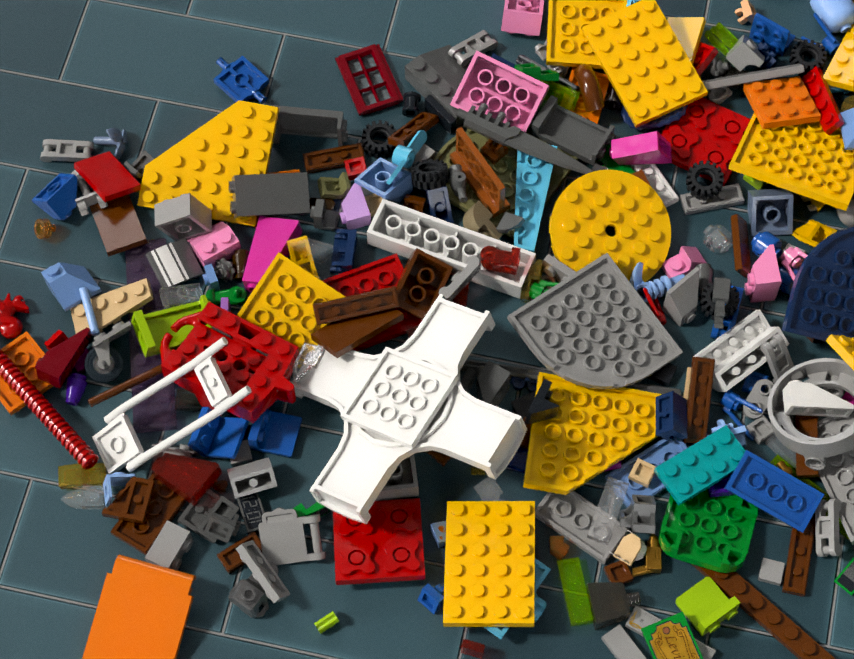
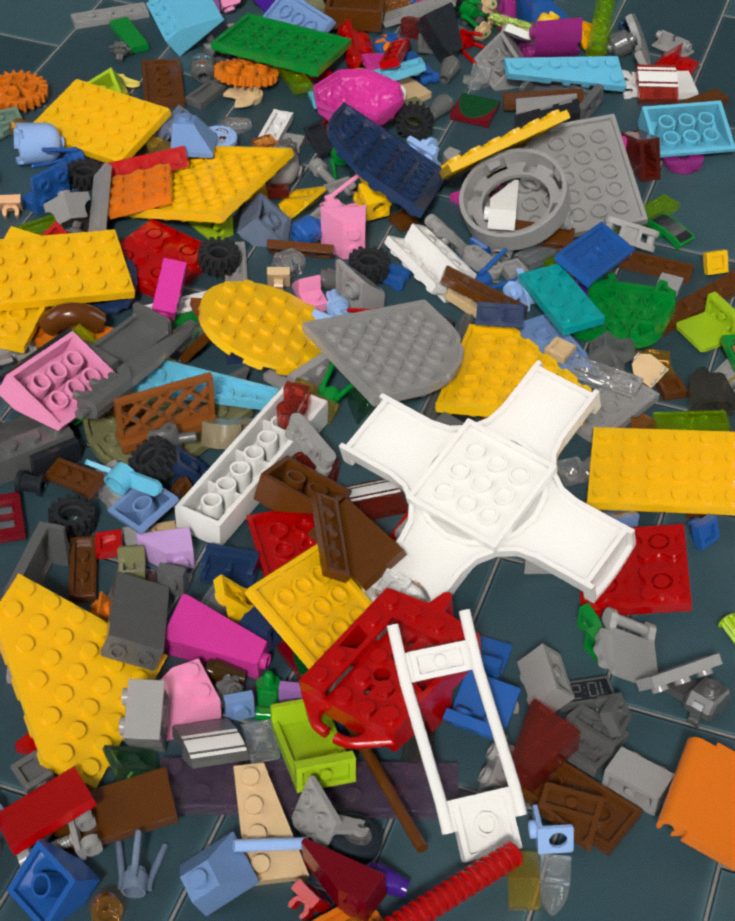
camera: 85 degrees left, 20 degrees down
(68, 240) = (135, 880): none -> sand blue plant
(146, 216) = (129, 761): none -> clear green slope
(231, 558) = (645, 714): reddish brown tile -> none
(509, 222) = (238, 400): dark grey tile -> none
(535, 71) = (43, 343): green slope -> none
(541, 407) = (480, 395): black slope -> none
(693, 234) = (278, 277): none -> tan tile
(720, 298) = (371, 250): dark grey piece -> none
(810, 613) = (715, 262): none -> yellow tile
(827, 215) = (278, 190): none -> clear red tile

